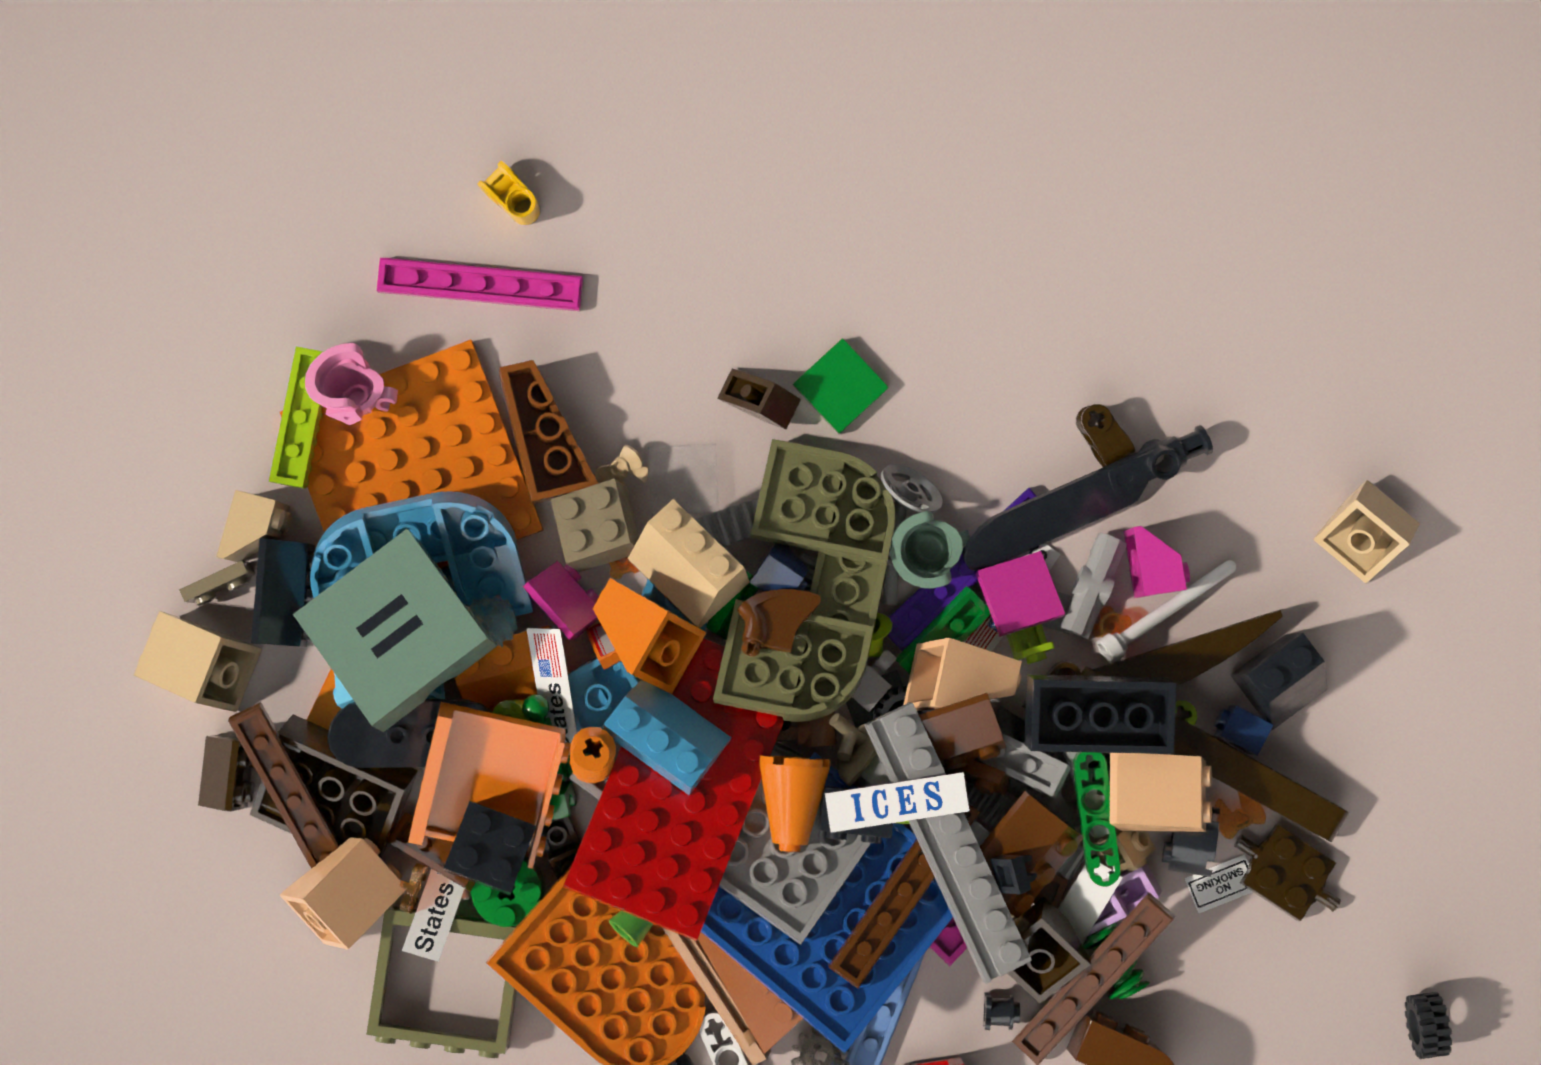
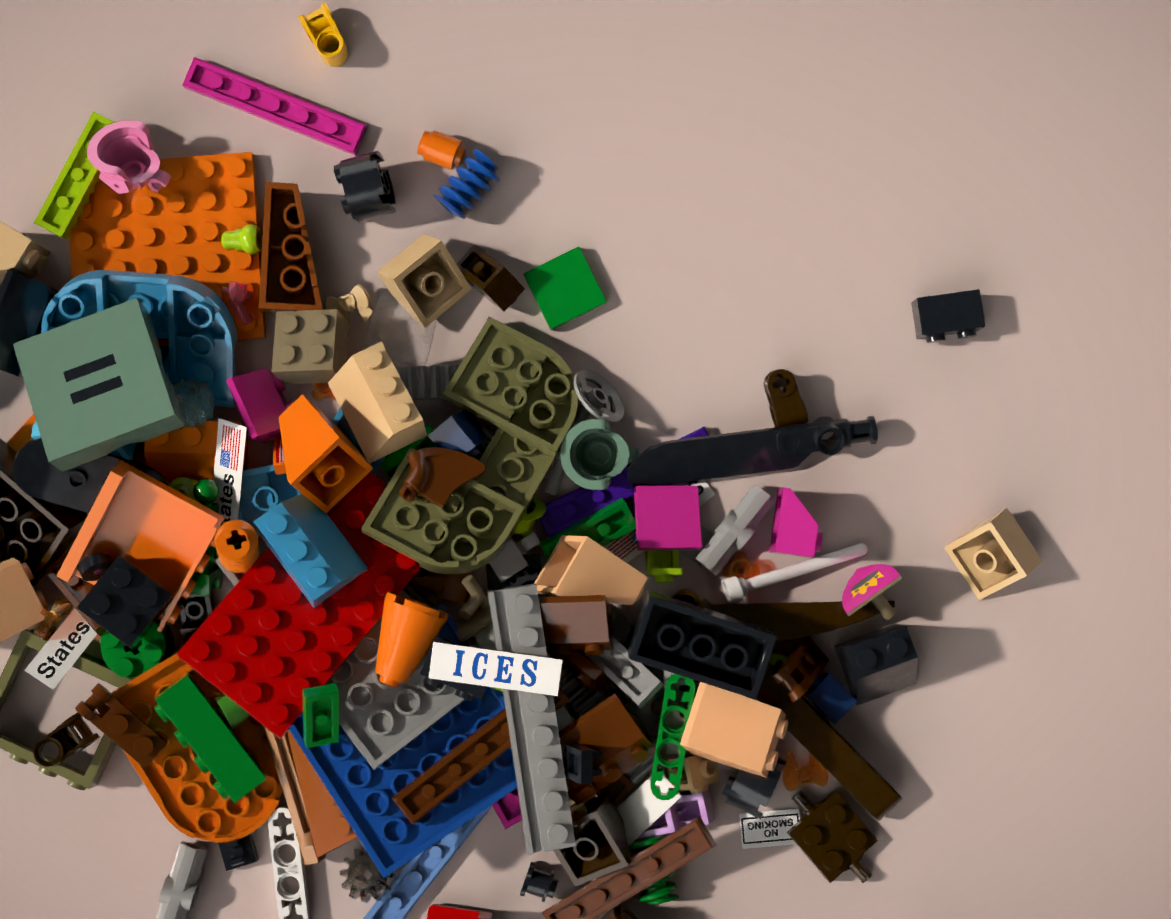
camera: 20 degrees right, 0 degrees up
(445, 820) = (94, 566): none -> black tile
(469, 1008) = (66, 739): none -> dark brown piece
(494, 433) = (243, 239): none -> lime piece
(504, 493) = (237, 294): none -> clear pink plate
(524, 977) = (122, 726): none -> reddish brown plate
(603, 341) = (365, 186): none -> black brick
(618, 962) = (210, 738): none -> green brick
(669, 279) = (441, 149): none -> orange brick
(693, 419) = (425, 279): none -> tan slope
(709, 307) = (468, 185): none -> blue piece
(731, 903) = (320, 715): none -> green plate
(1206, 709) = (801, 668): none -> reddish brown plate
(1247, 297) = (948, 315): none -> black brick
(1249, 602) = (867, 586): none -> shield

